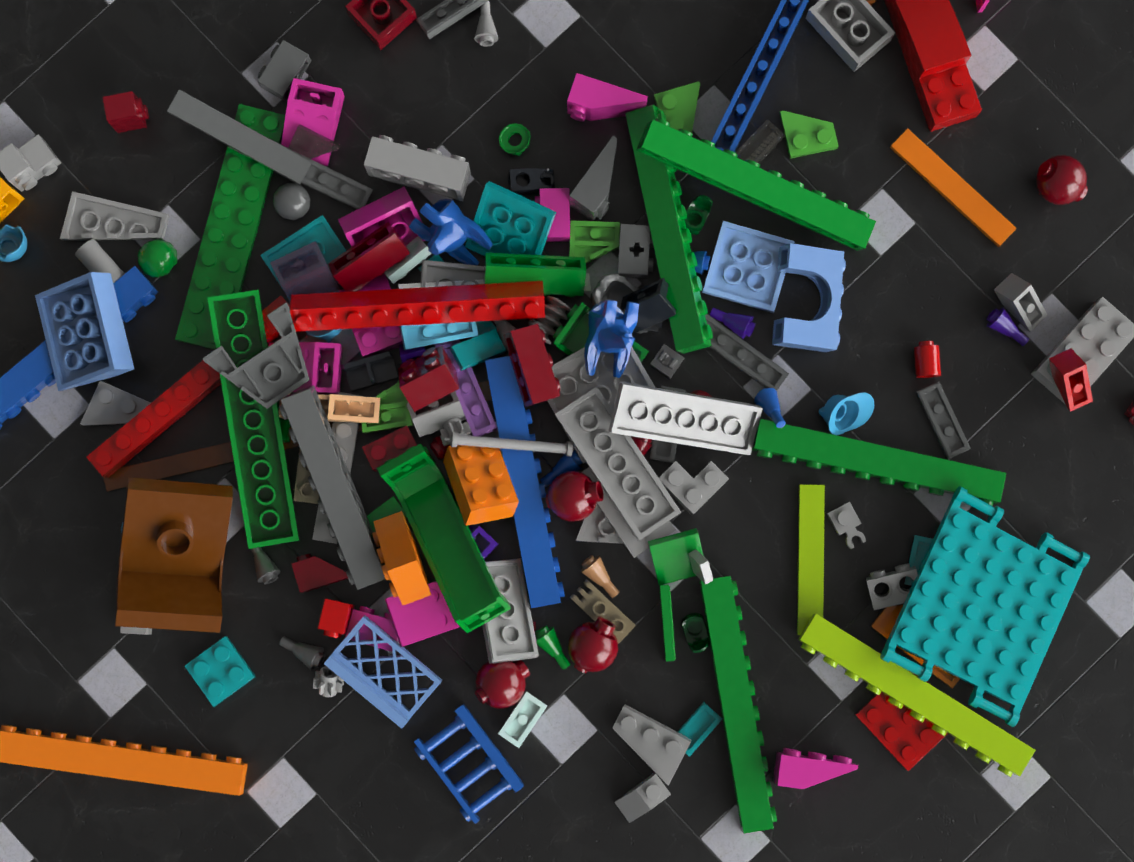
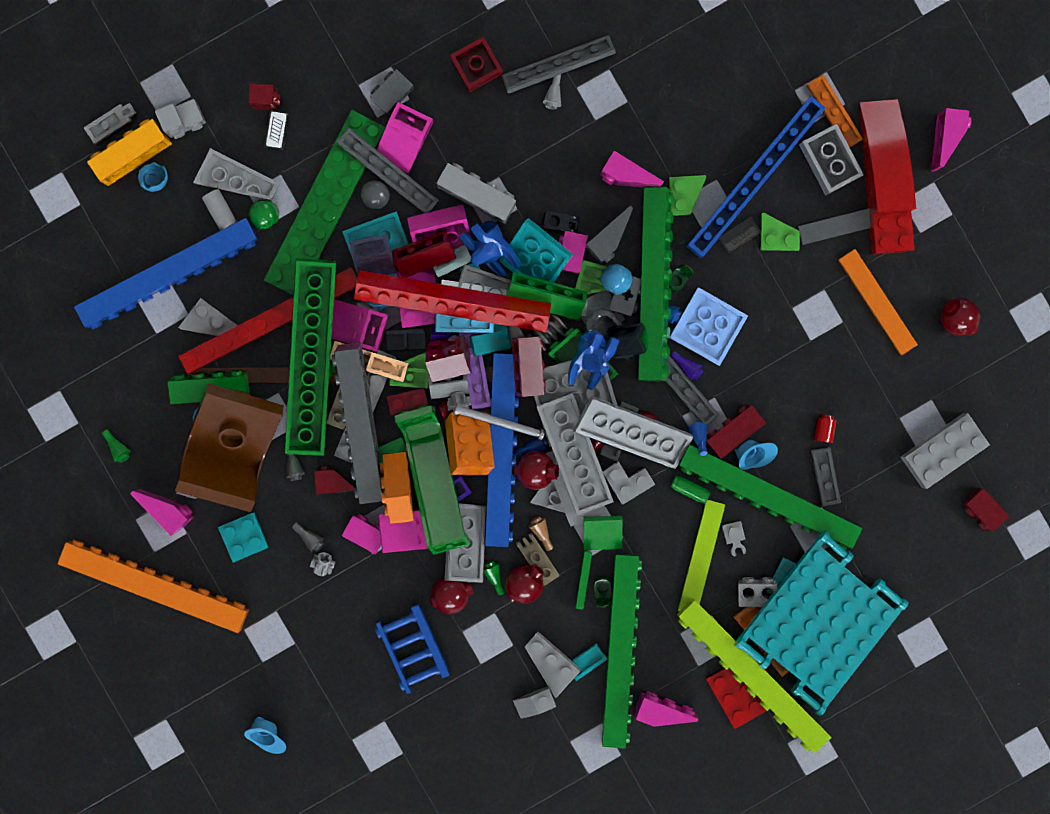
camera: 10 degrees right, 5 degrees up
(36, 597) = (118, 450): none -> green cone
(84, 331) = (197, 260): medium blue slope -> none
(110, 496) = (191, 388): none -> green brick
(118, 663) = (166, 512): none -> dark pink slope
(151, 151) = (276, 130): none -> tile
(239, 137) = (346, 138): dark grey tile -> none
(272, 371) = (333, 327): dark grey wing -> none
(311, 143) = (400, 155): clear smoke tile -> none
(335, 617) = (338, 519): red brick -> none
(369, 688) = (350, 574): medium blue fence -> none
(510, 130) = (552, 179): green piece -> none
(522, 719) = (459, 625): light aqua plate -> none
(618, 232) = (616, 279): none -> dark azure hair
(667, 361) = (630, 383): flat silver tile -> none
(700, 566) = (618, 544): light grey tile -> none
(756, 185) = (728, 267): green brick -> none
(775, 476) = (690, 489): none -> green piece
(813, 389) = (734, 431): none -> dark red brick
(826, 270) = (766, 344): medium blue arch -> none
(875, 108) = (834, 226): none -> dark grey tile
(1001, 321) = (888, 413): dark purple cone -> none
(1021, 301) = (906, 401): light grey slope -> none
(1071, 379) = (928, 471): red slope -> none

